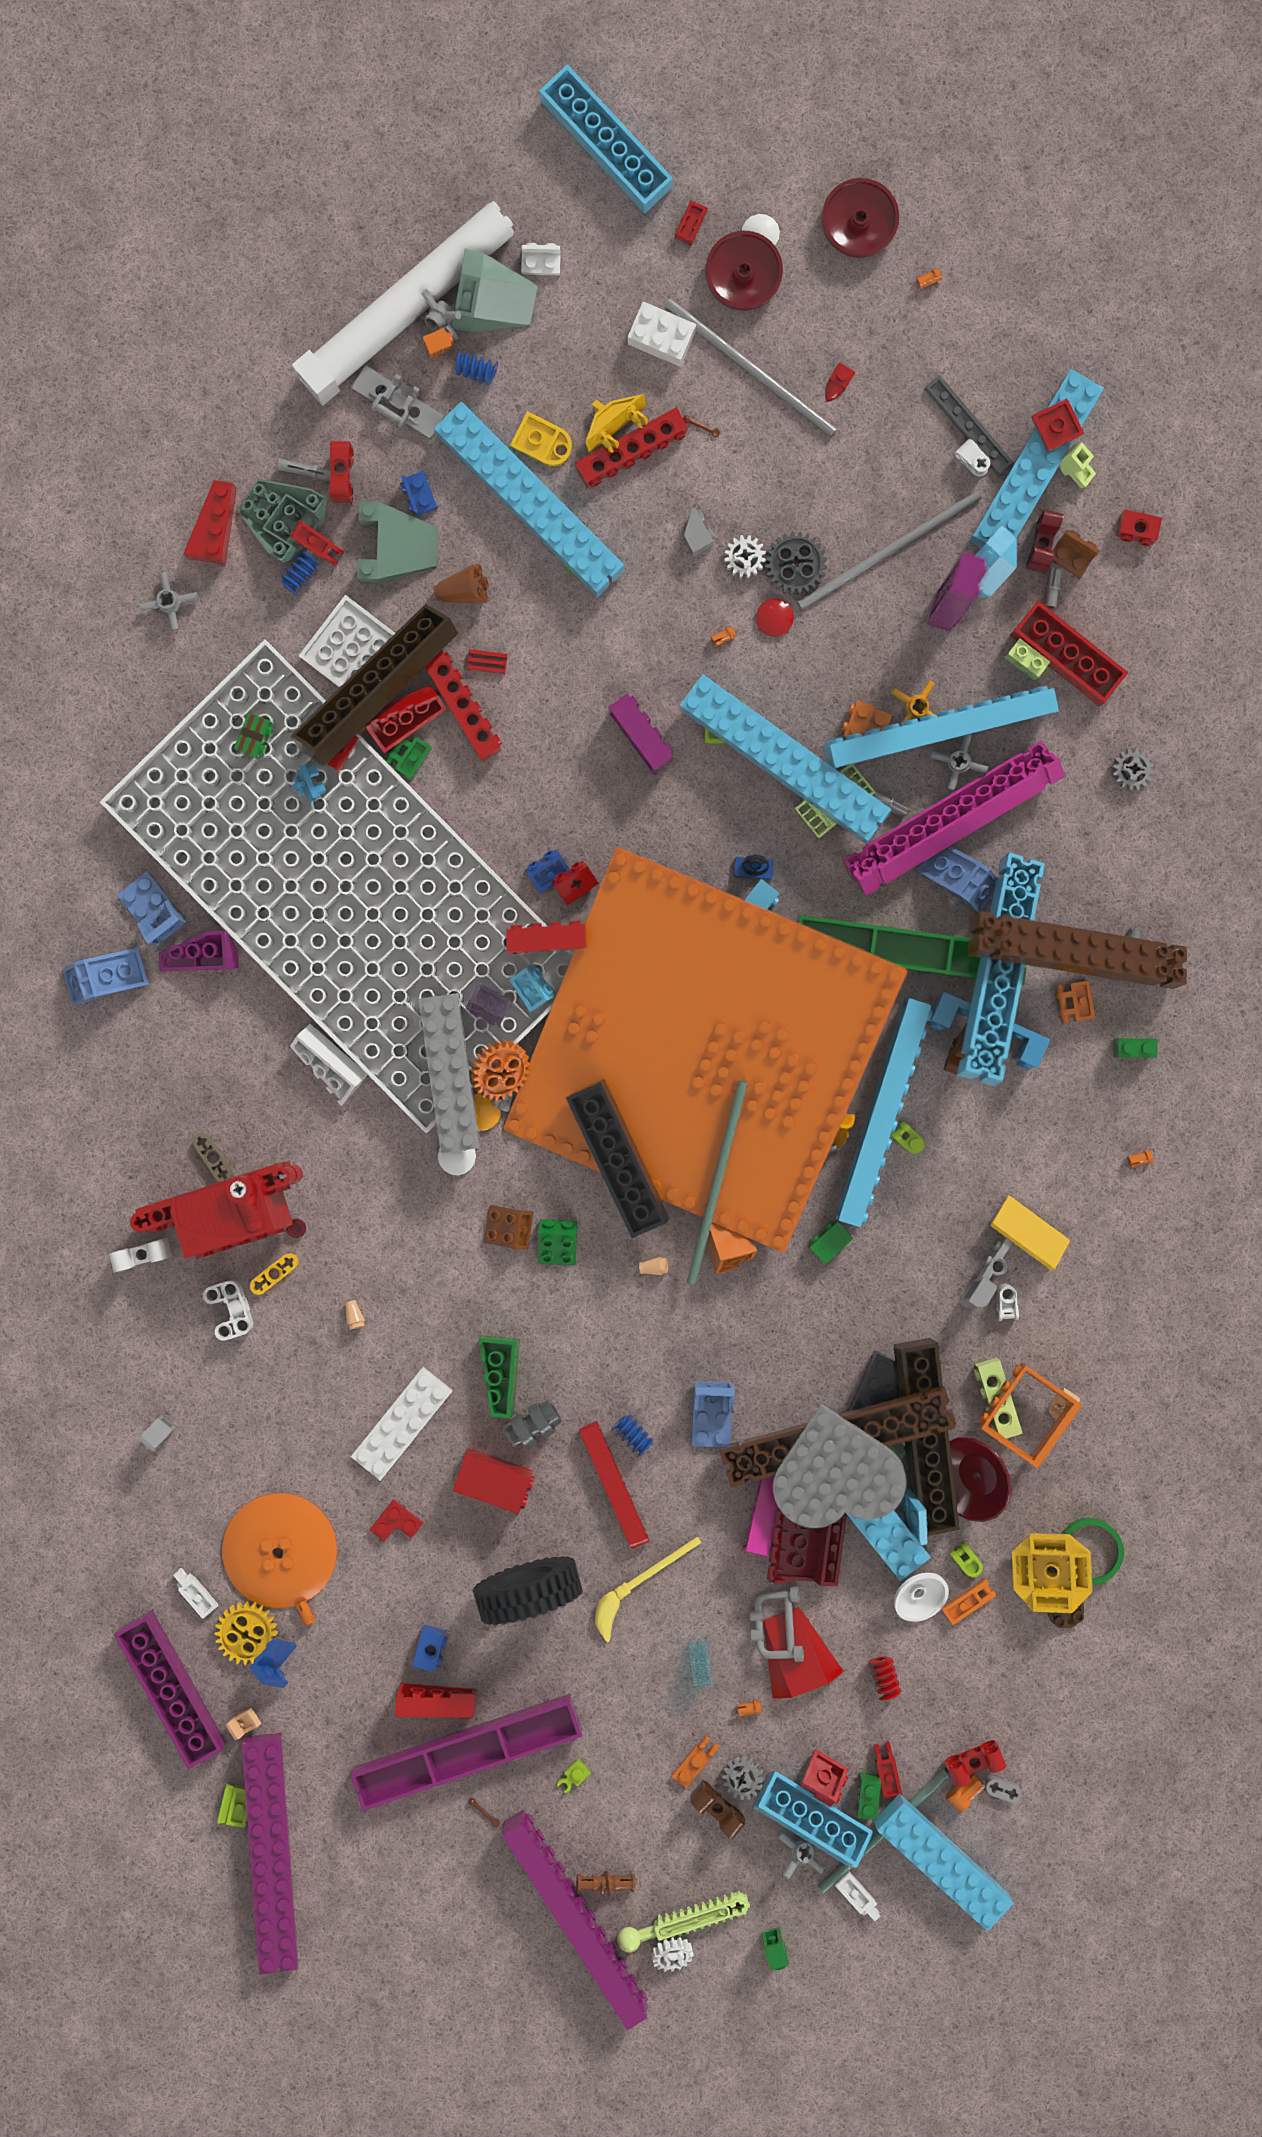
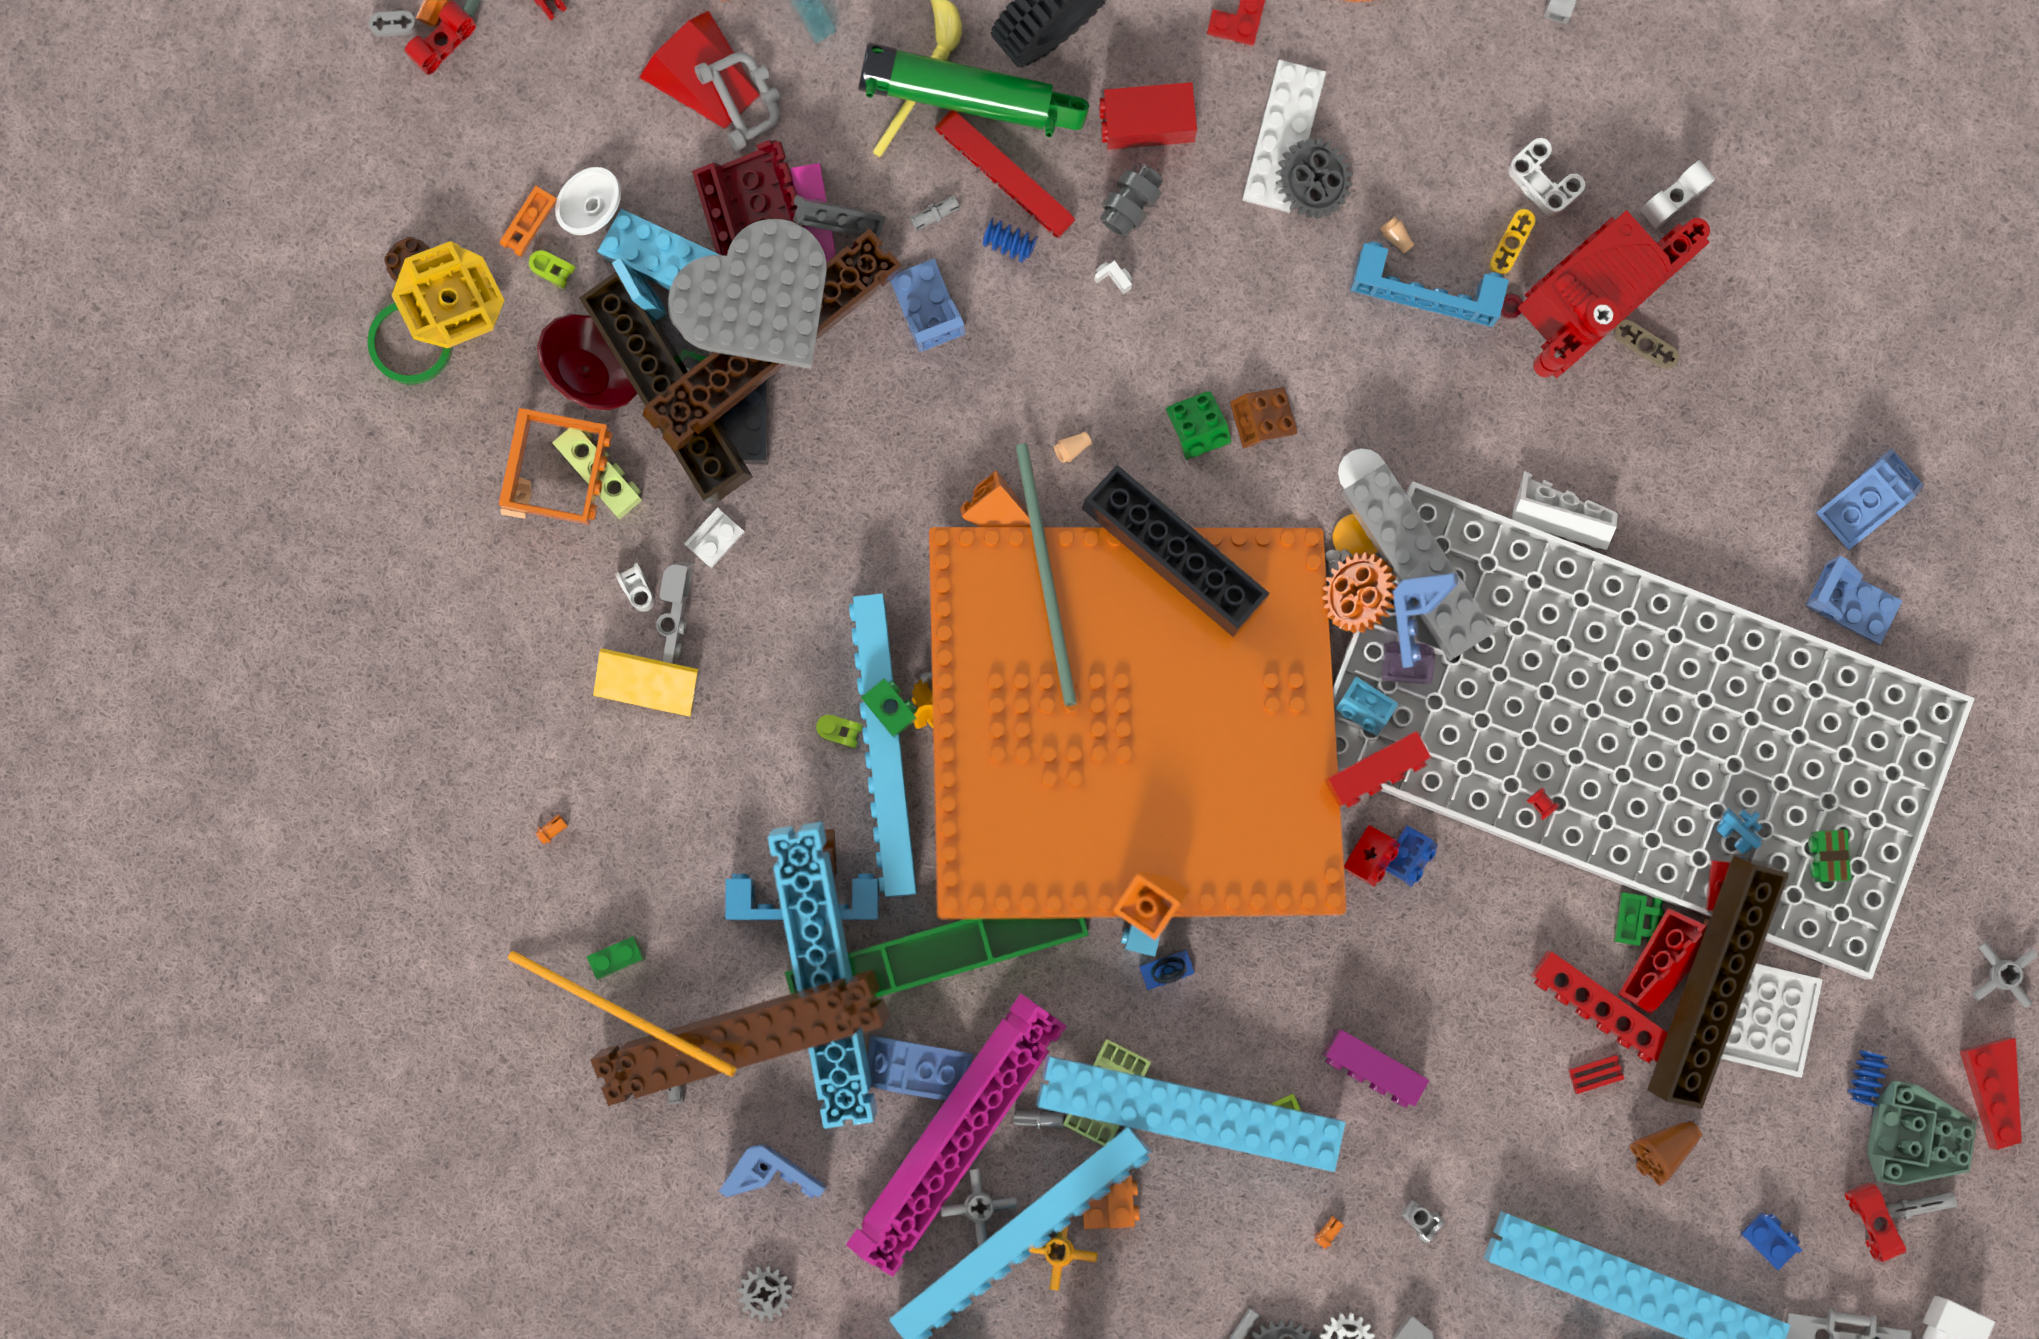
camera: 155 degrees right, 5 degrees down
(205, 952) = (1769, 577): magenta wedge -> none
(315, 542) = (1867, 1123): red hinge -> none
(318, 1233) = (1483, 310): none -> dark azure plate
(379, 1387) = (1329, 165): none -> dark grey gear
(403, 544) = (1761, 1170): sand green wedge -> none
(439, 864) = (1542, 803): none -> red bush
(455, 1046) = (1430, 593): none -> medium blue bracket
(500, 1372) = (1195, 242): green wedge -> none
(565, 1373) = (1120, 277): none -> white bracket
(614, 1557) = (969, 90): none -> green piece
(654, 612) = (1425, 1224): none -> light grey plate
(676, 1478) = (935, 213): none -> light grey pin
(749, 1505) = (837, 217): none -> dark grey hinge
(752, 913) = (1151, 902): none -> orange slope
(774, 617) = (1277, 1283): red dish -> none
(830, 1241) = (878, 566): green brick -> none
(878, 1145) = (896, 721): none -> green brick
(887, 1678) = (586, 91): red piece -> none
(935, 1314) = (714, 538): none -> white plate
(1081, 1001) = (705, 987): orange plate -> none
(1108, 853) = (749, 1175): none -> medium blue bracket
(1151, 1005) = (622, 1013): none -> light orange piece

